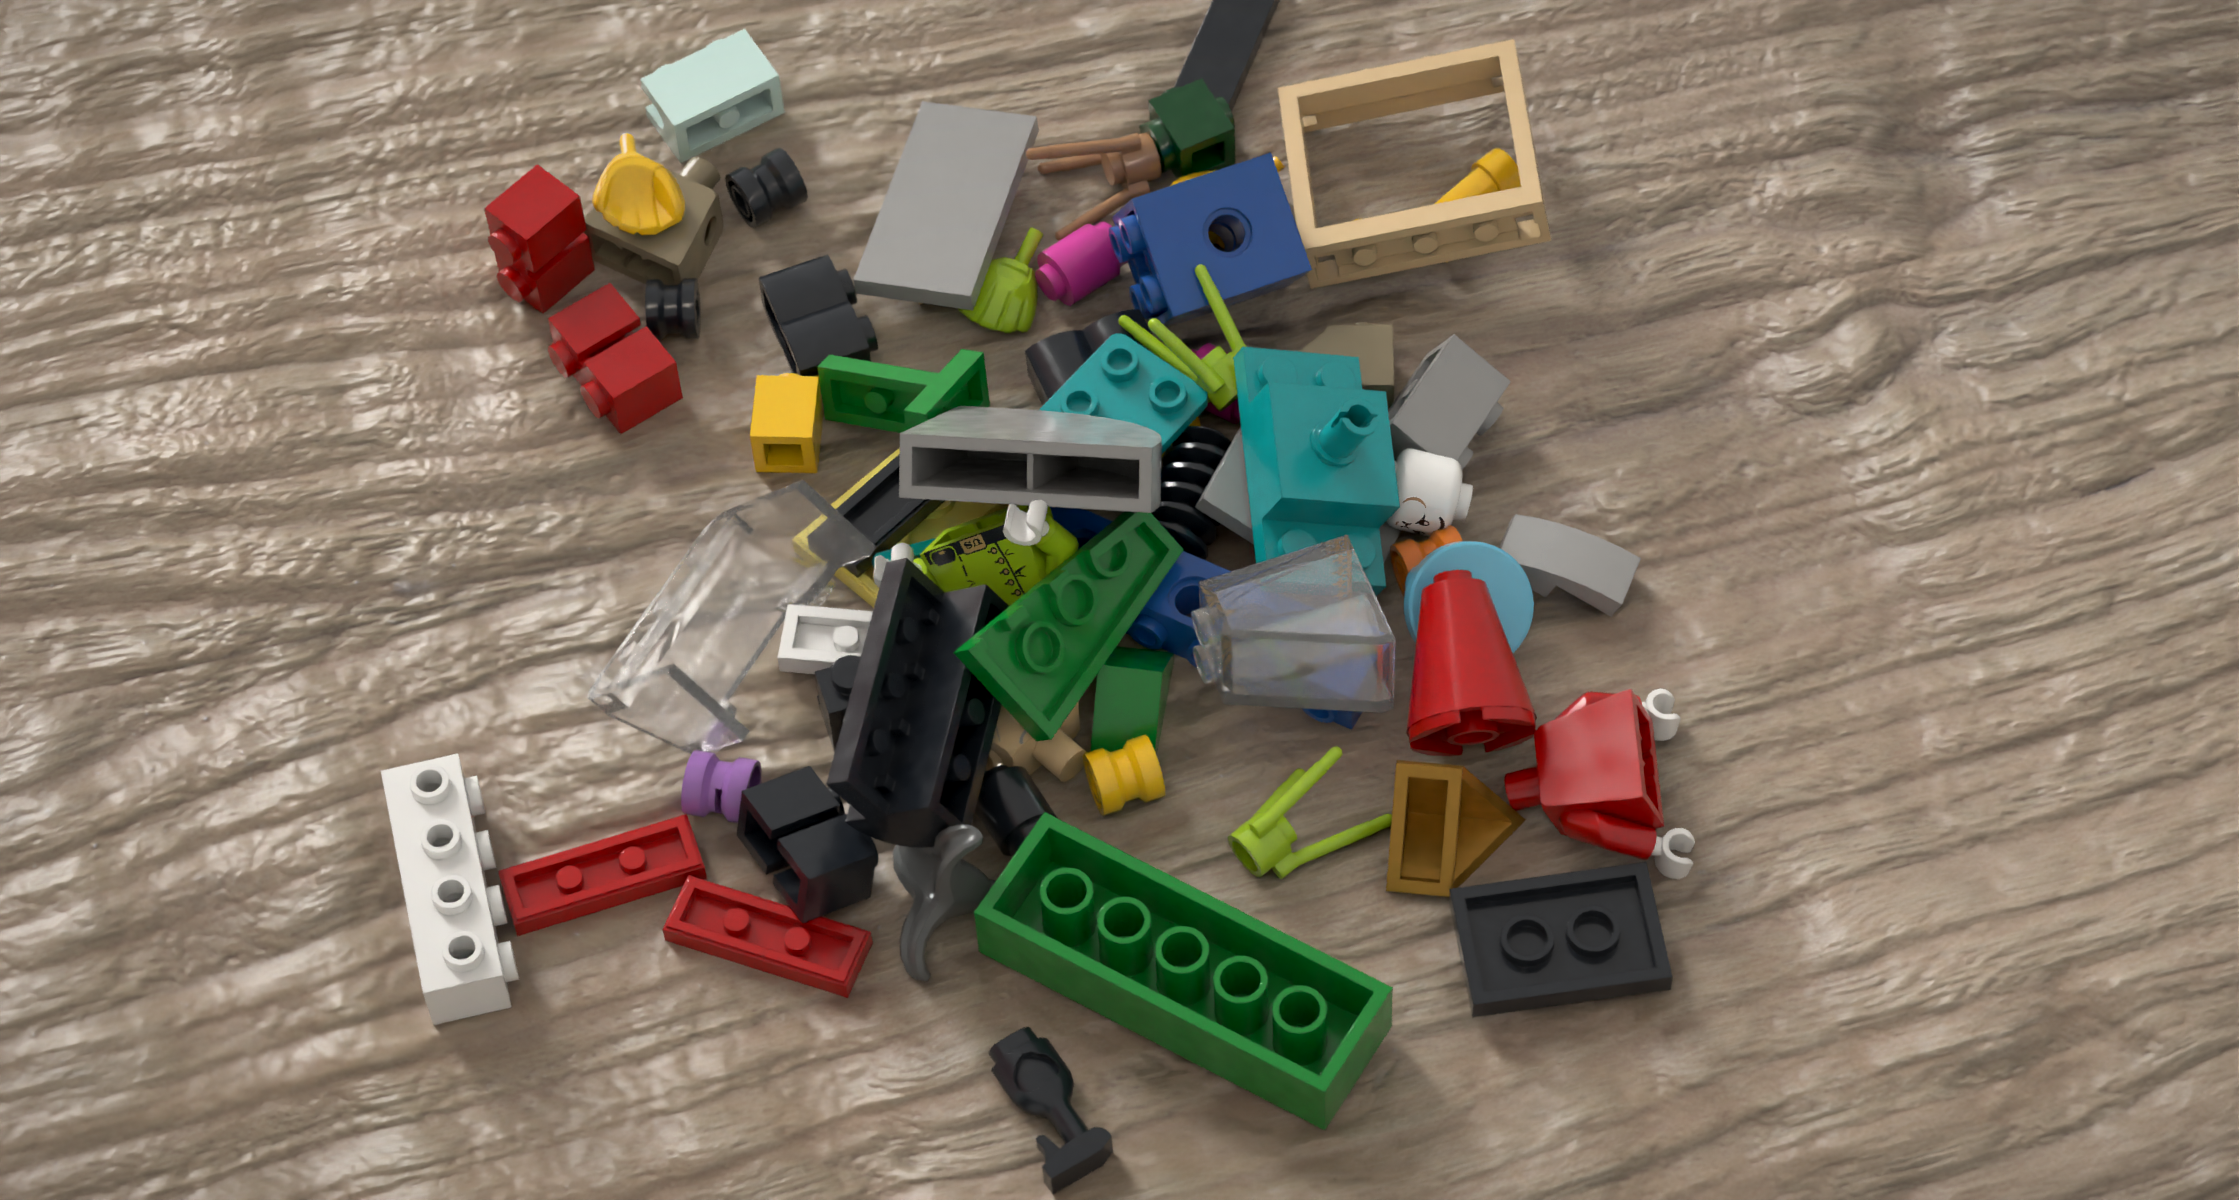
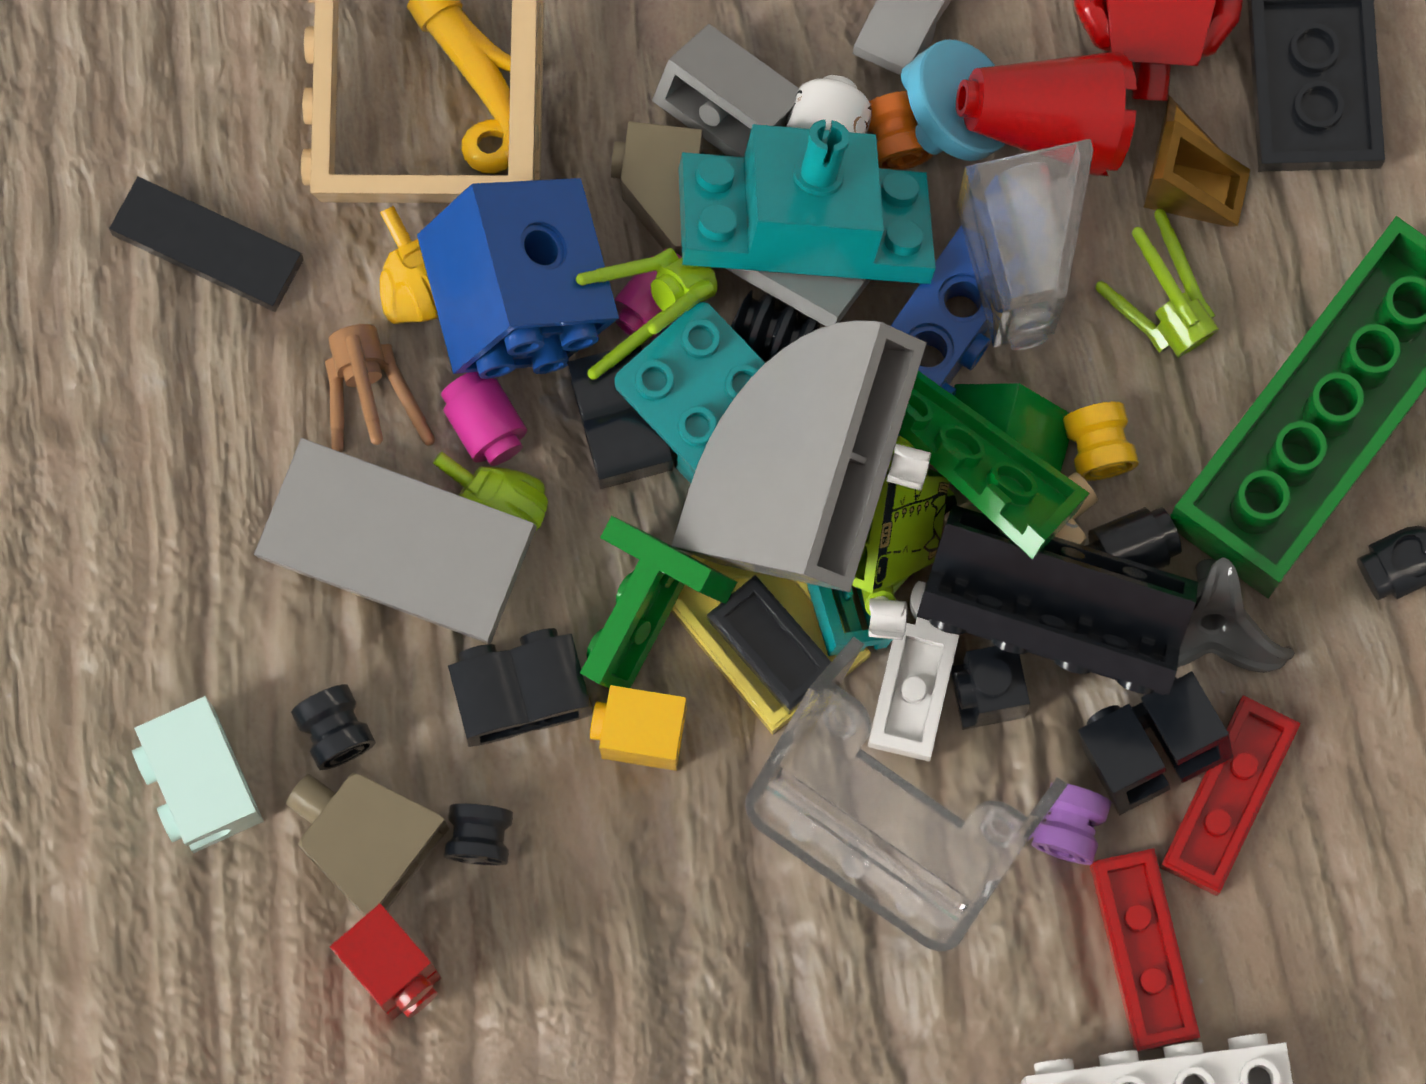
camera: 85 degrees left, 20 degrees up
(618, 370) = (562, 883): red piece -> none
(638, 193) = (356, 850): yellow piece -> none
(1191, 130) = (330, 290): dark green brick -> none

